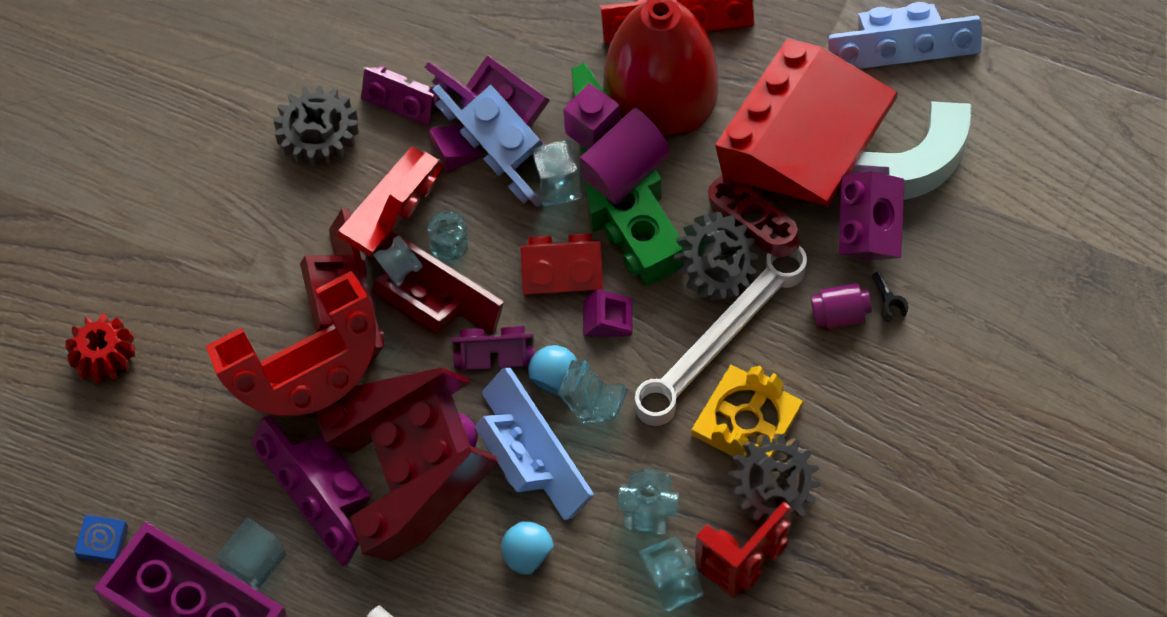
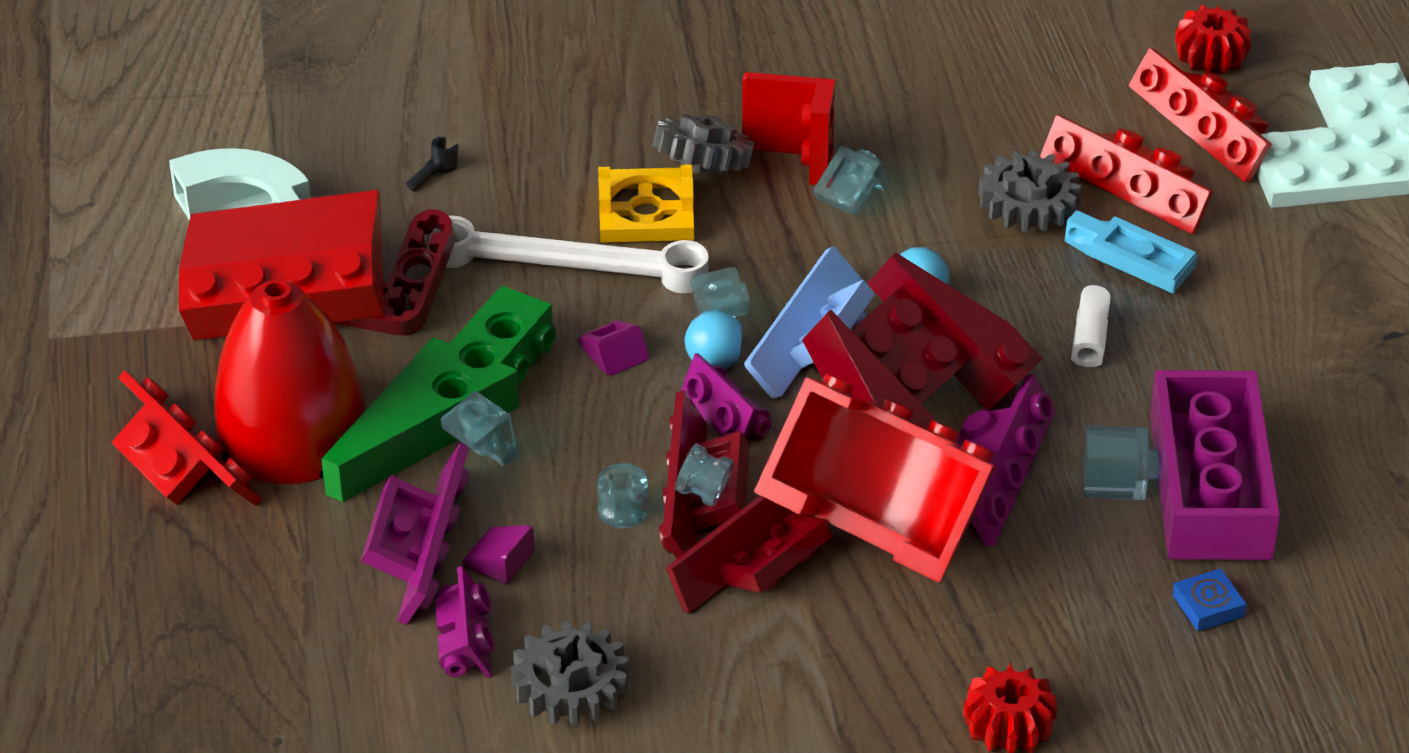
camera: 125 degrees left, 20 degrees down
(391, 201) = (621, 515): bracket -> none
(500, 131) = (468, 489): light blue bracket -> none
(561, 265) = (581, 395): red bracket -> none
(590, 116) = (409, 390): magenta brick -> none
(624, 156) = (433, 360): magenta brick -> none
(648, 501) = (800, 215): clear light blue brick -> none
(729, 270) = (489, 266): dark grey gear -> none
(841, 306) = (473, 182): magenta brick -> none
(871, 216) = (364, 168): magenta brick -> none
(906, 37) = (89, 265): light blue bracket -> none

